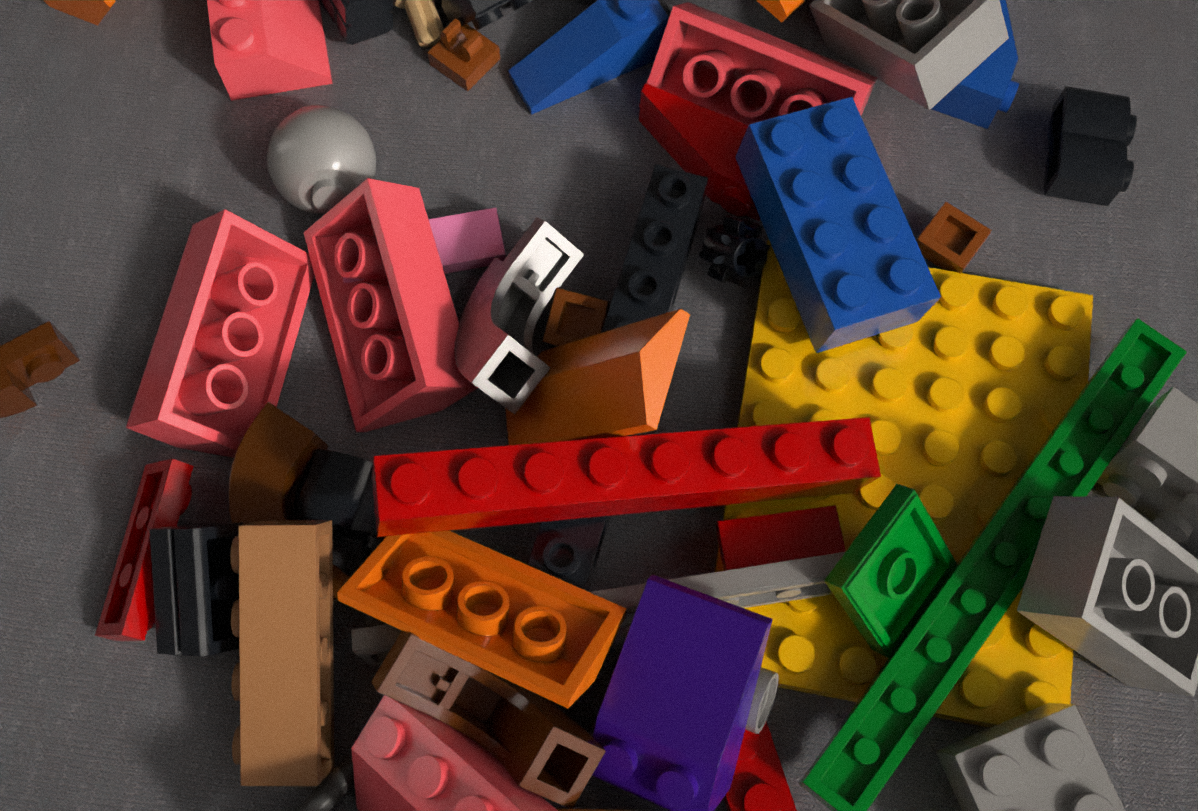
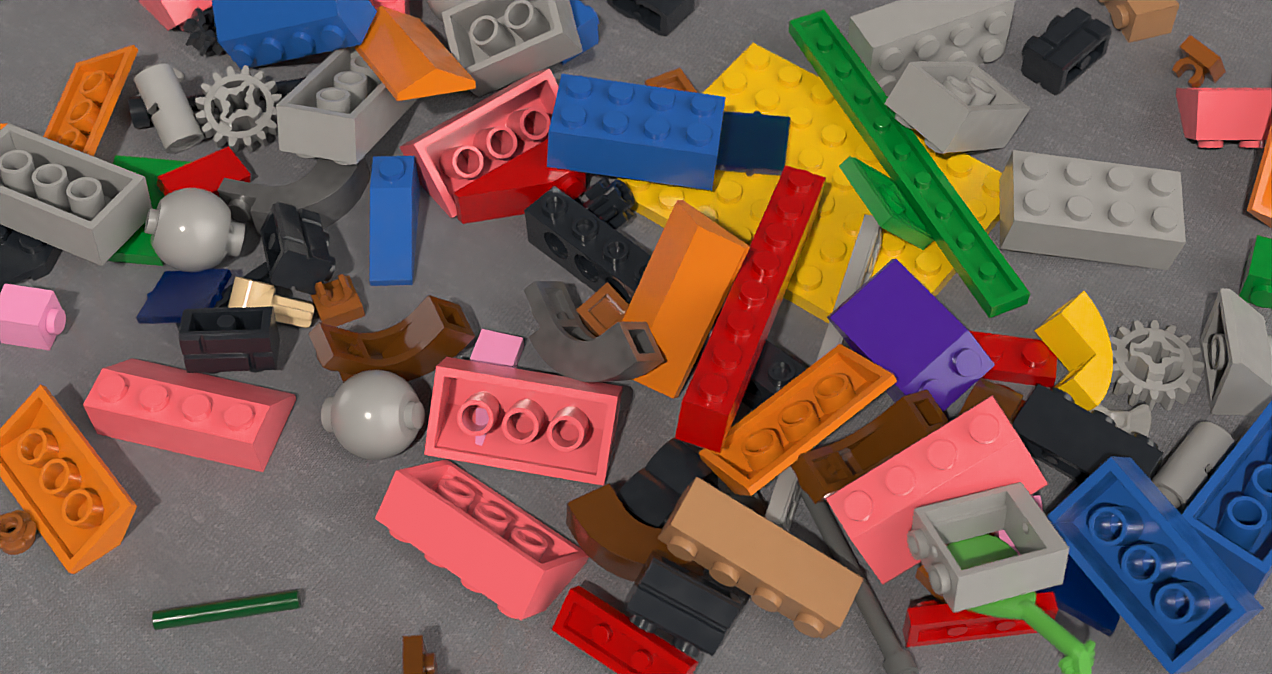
camera: 60 degrees left, 15 degrees down
(54, 152) = (226, 609): none -> dark green bar
(431, 151) = (407, 349): none -> reddish brown arch
(779, 537) = (829, 262): red tile -> none
(920, 368) = (753, 143): none -> clear blue piece

